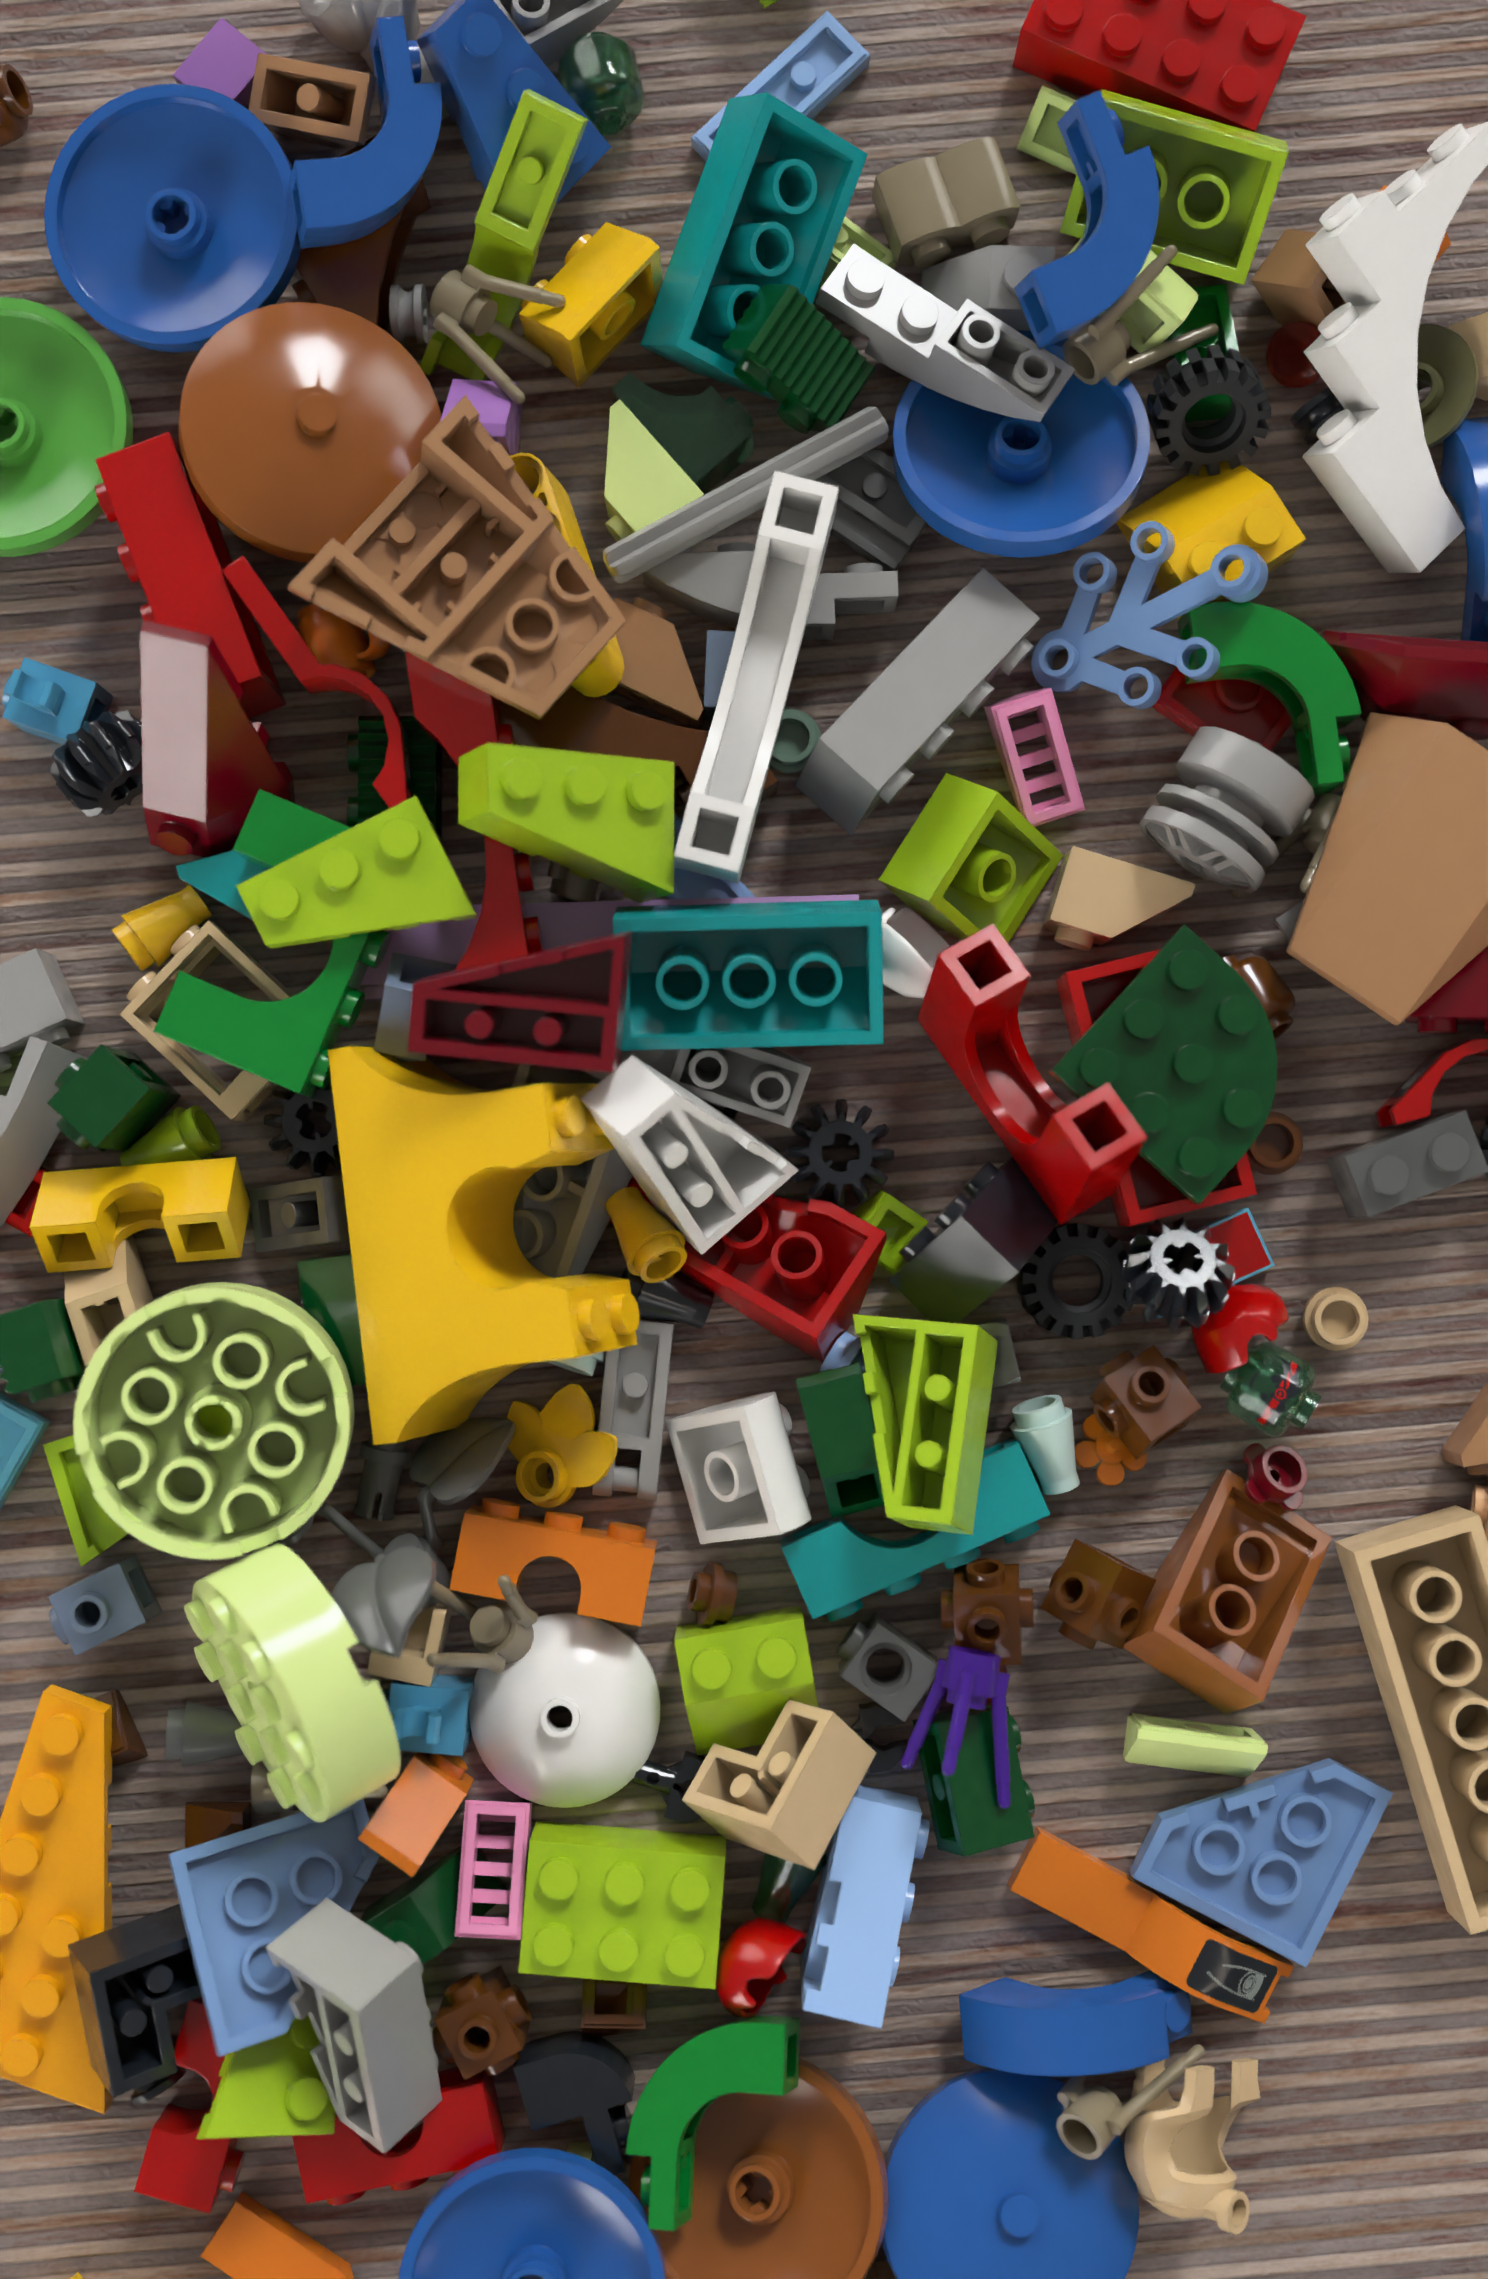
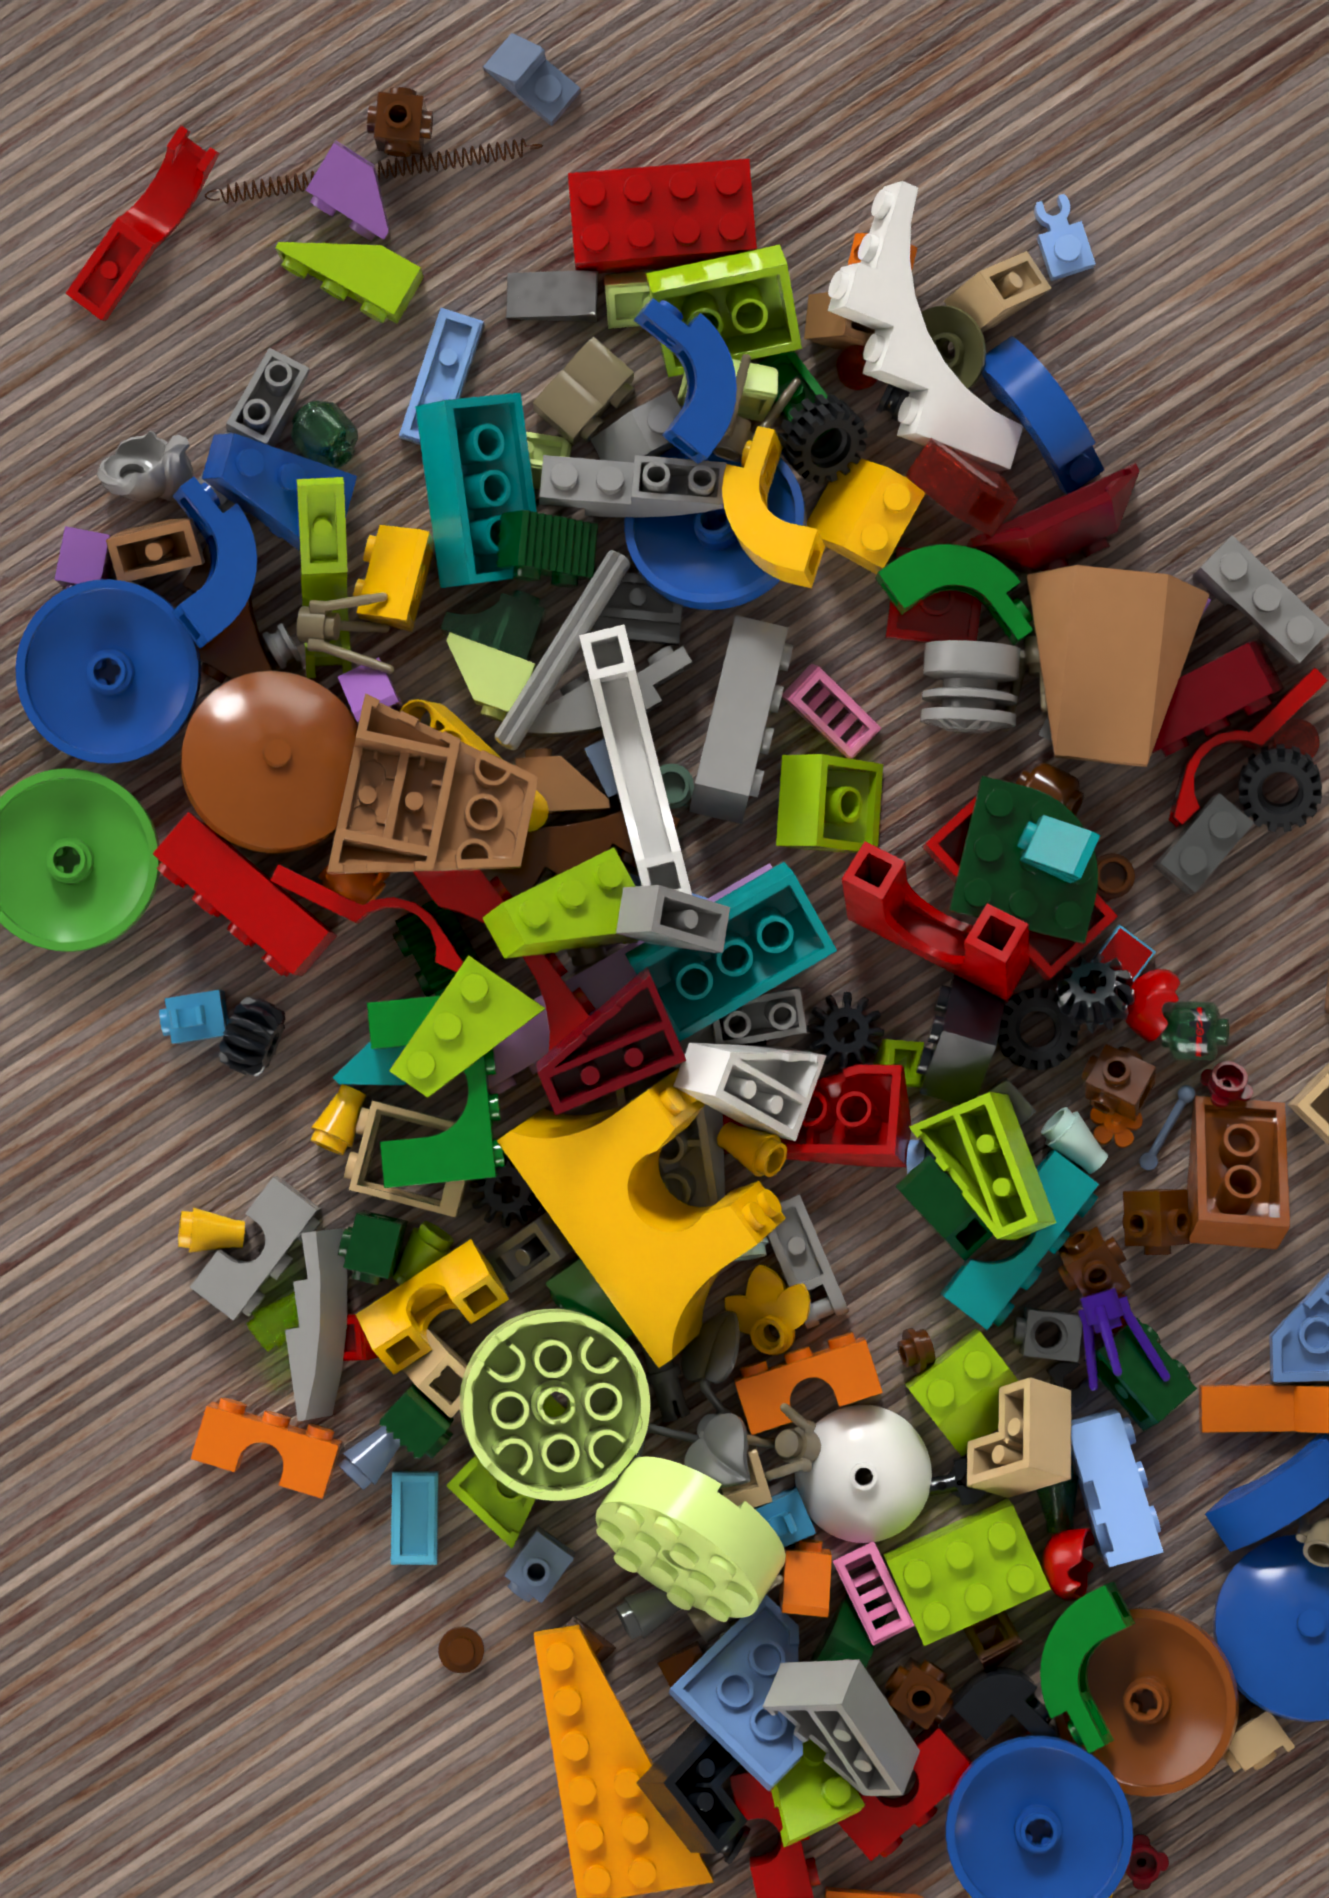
camera: 30 degrees left, 0 degrees up
(198, 746) = (317, 999): dark red wedge -> none
(395, 1009) = (525, 1085): brick -> none
(671, 1299) = (790, 1180): black cone -> none
(695, 884) = (672, 918): none -> light grey slope
(740, 1469) = (890, 1262): white brick -> none
(909, 952) = (821, 879): white hair -> none
(972, 71) = (552, 296): none -> flat silver slope
(1080, 492) = (775, 546): none -> yellow arch
(1106, 898) = (925, 779): tan slope -> none
(1126, 1516) = (1148, 1160): none -> sand blue hinge
(1135, 619) = (848, 598): medium blue plant -> none
(1193, 1745) = (1267, 1281): yellowish green slope -> none
(1237, 1062) = (1057, 847): none -> teal slope
(1335, 1318) = (1212, 964): tan plate -> none
(1352, 555) = (963, 486): none -> clear red slope

